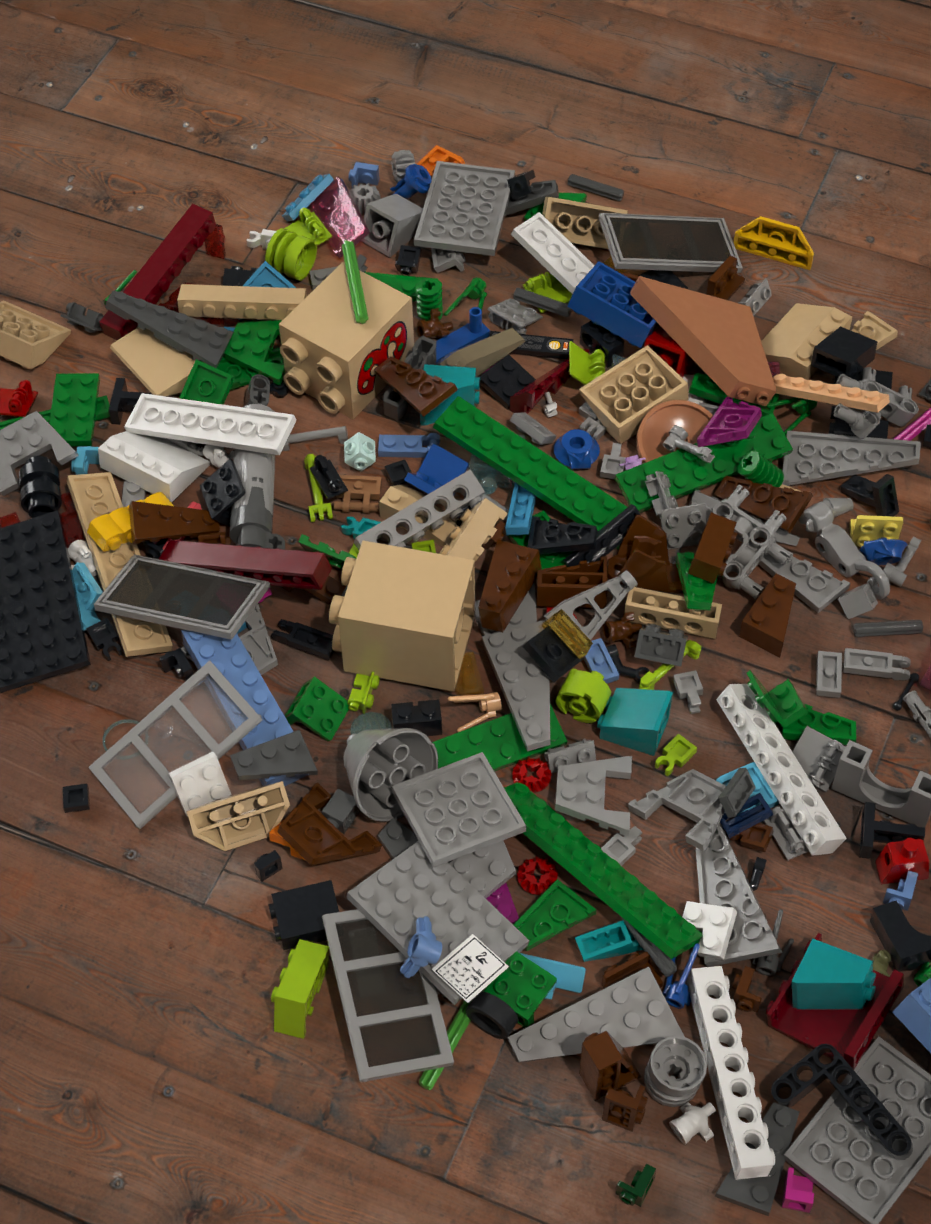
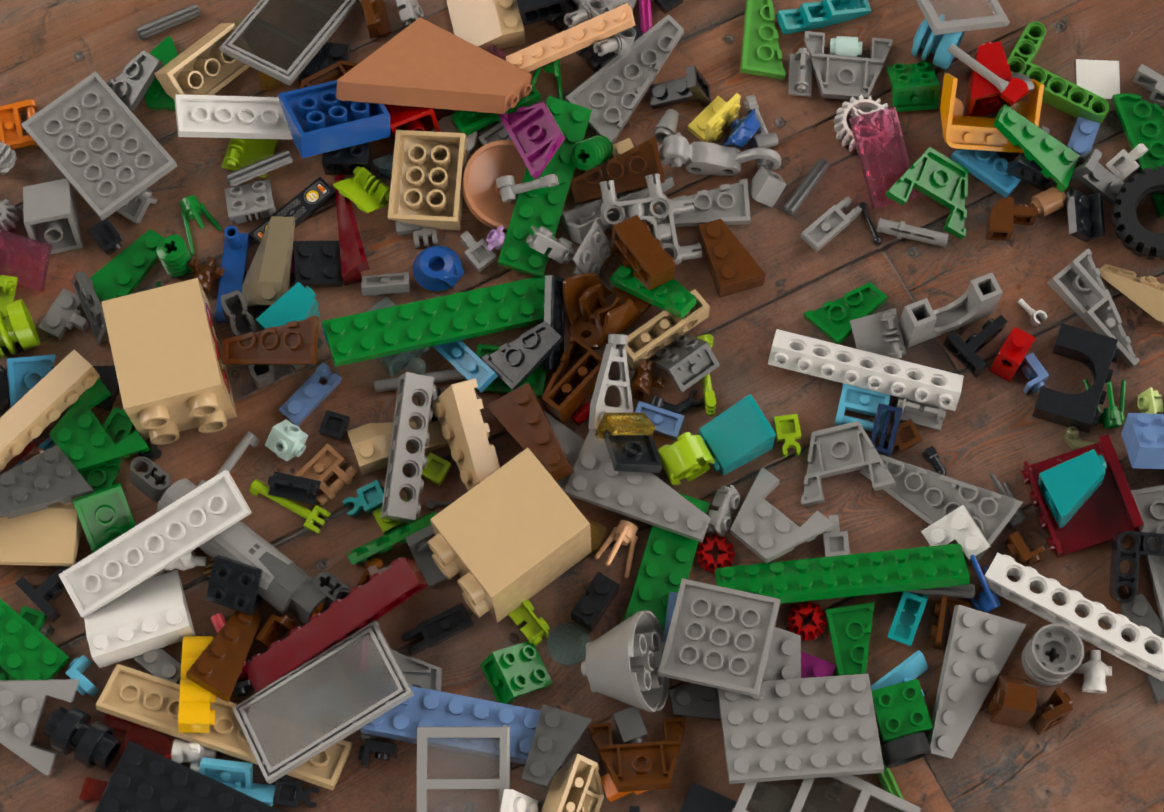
camera: 50 degrees left, 15 degrees up
(355, 283) = (138, 310): bright green axle -> none
(416, 180) = (28, 159): blue piece -> none
(422, 948) = (829, 760): medium blue axle -> none
(437, 469) = (368, 396): blue bracket -> none
(470, 968) = (866, 737): white sticker -> none
(520, 184) = (117, 79): black bracket -> none
(550, 408) = (375, 251): white hand -> none
(641, 1184) = (1114, 747): dark green bracket -> none
(689, 687) = (737, 373): light grey plate -> none
(737, 792) = (868, 420): dark grey plate -> none
(782, 701) = (811, 320): green bracket -> none
(829, 674) = (811, 264): light grey plate -> none

